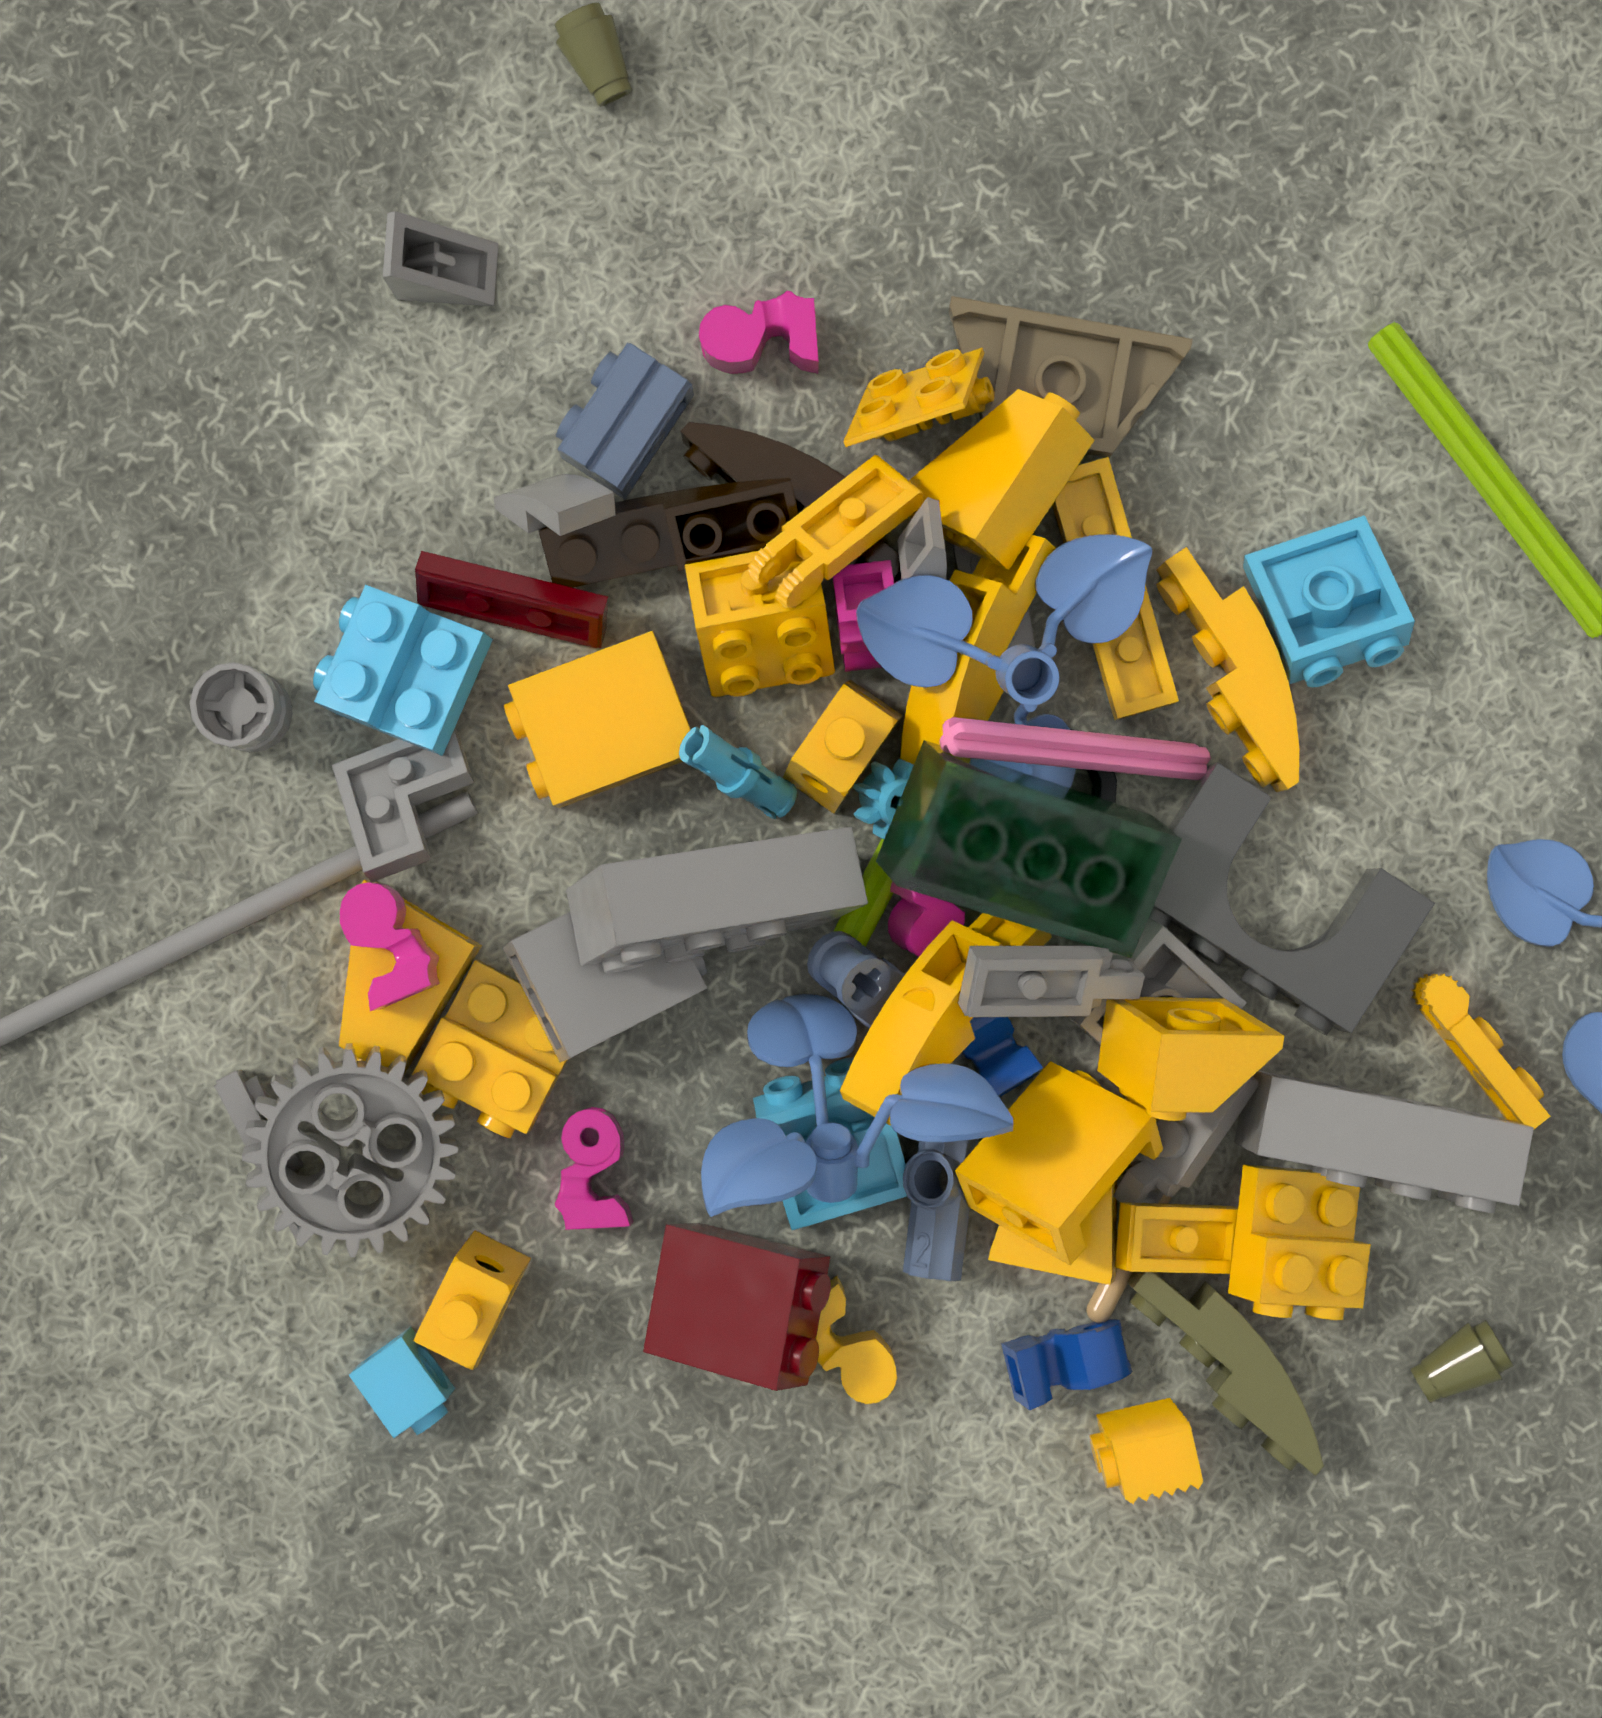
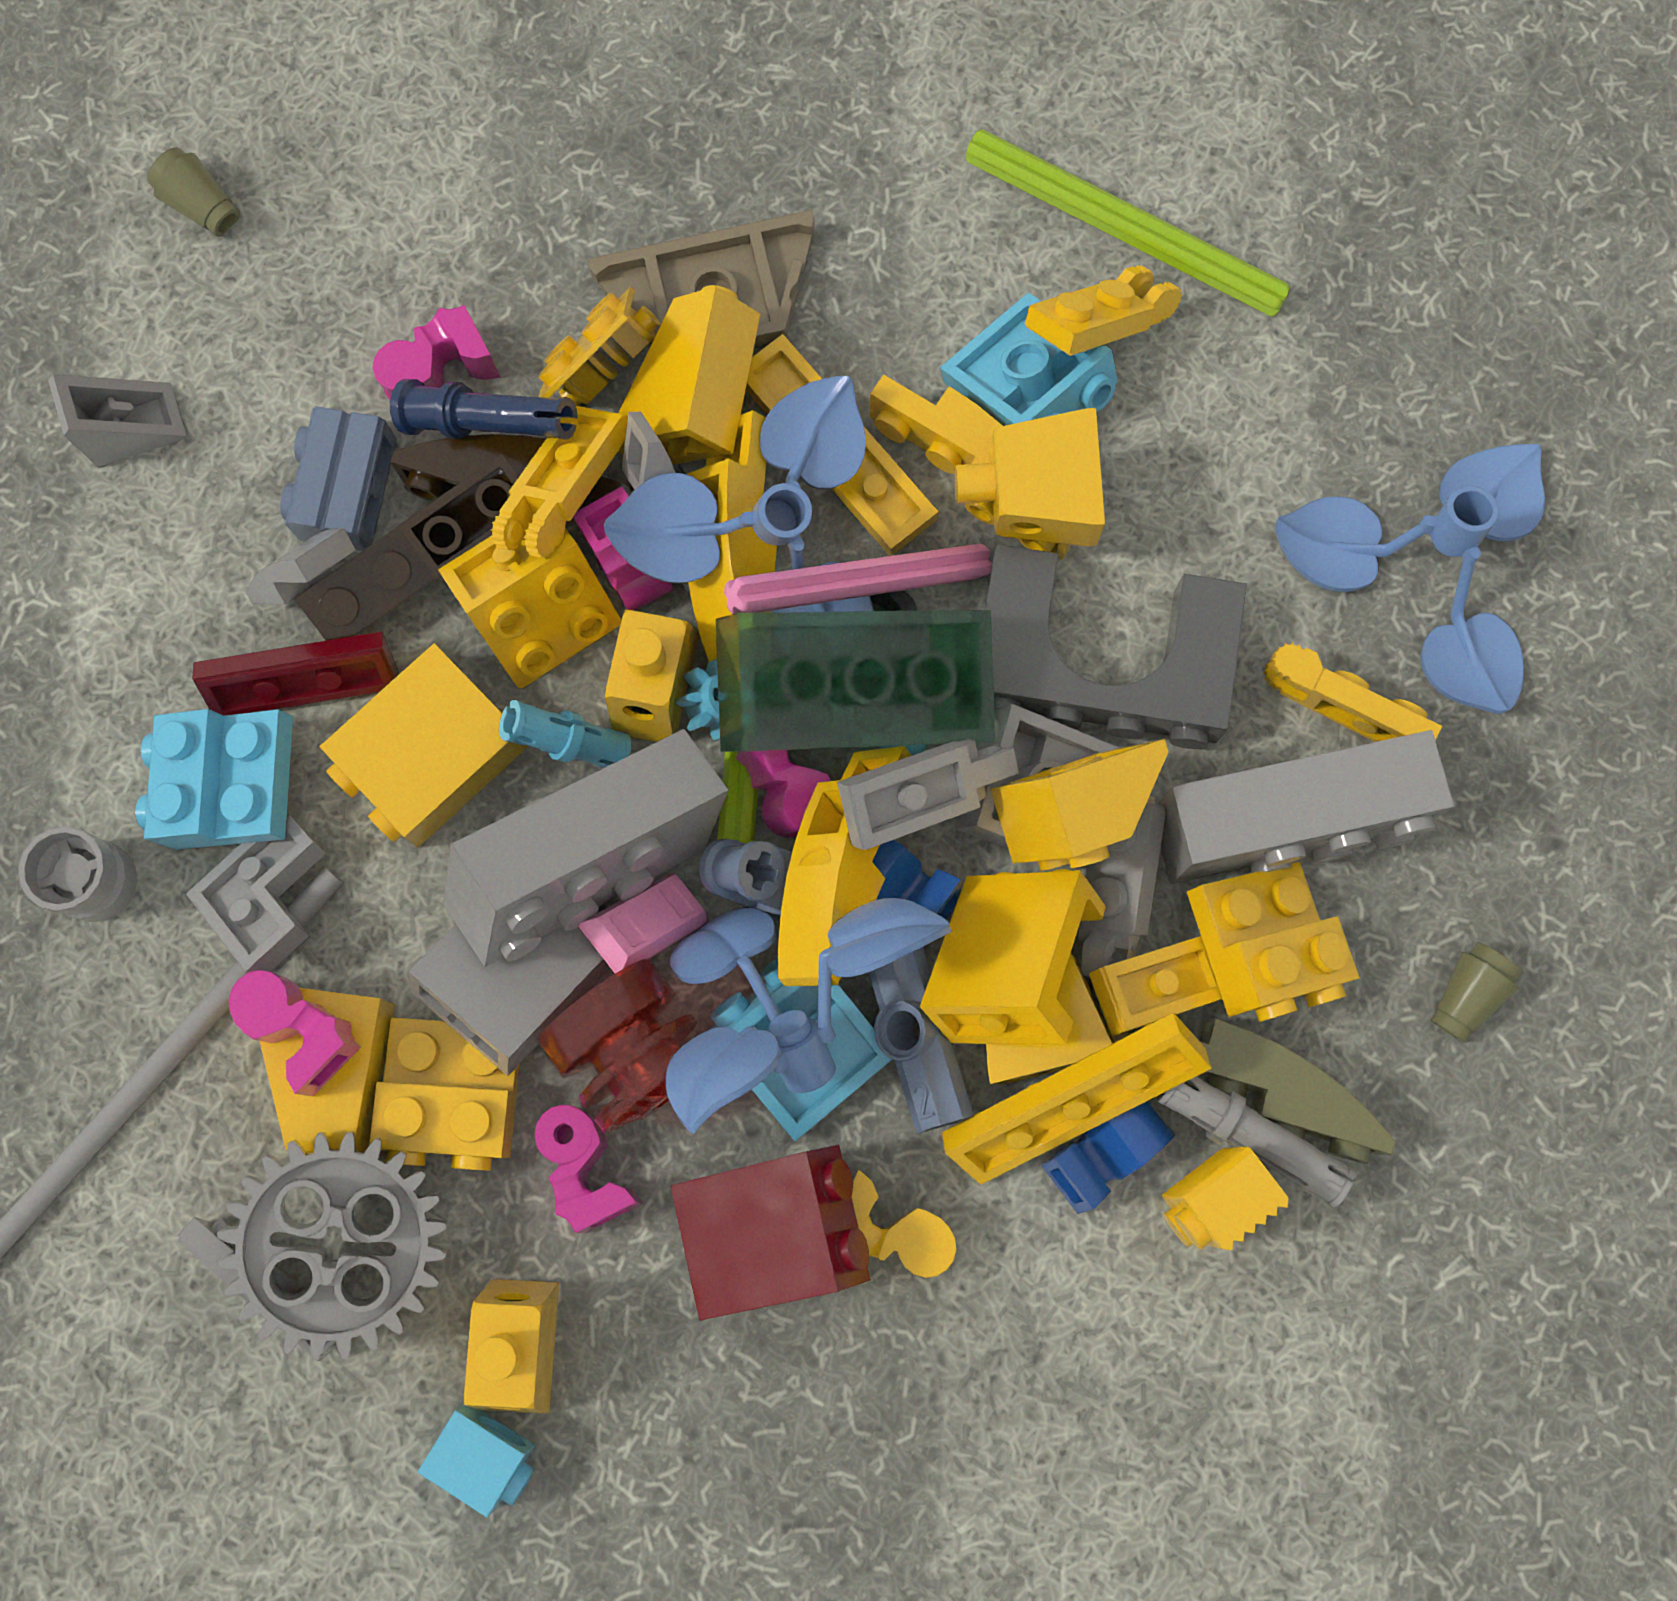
camera: 20 degrees left, 10 degrees down
(677, 1086) = (622, 1040): none -> clear red wheel
(738, 980) = (645, 923): none -> bright pink tile
(766, 412) = (459, 411): none -> dark blue pin
(1058, 1309) = (1077, 1099): none -> yellow plate
(1187, 1386) = (1231, 1120): none -> light grey pin
(1287, 726) = (1041, 480): none -> yellow torso
(1425, 574) = (1104, 311): none -> yellow hinge

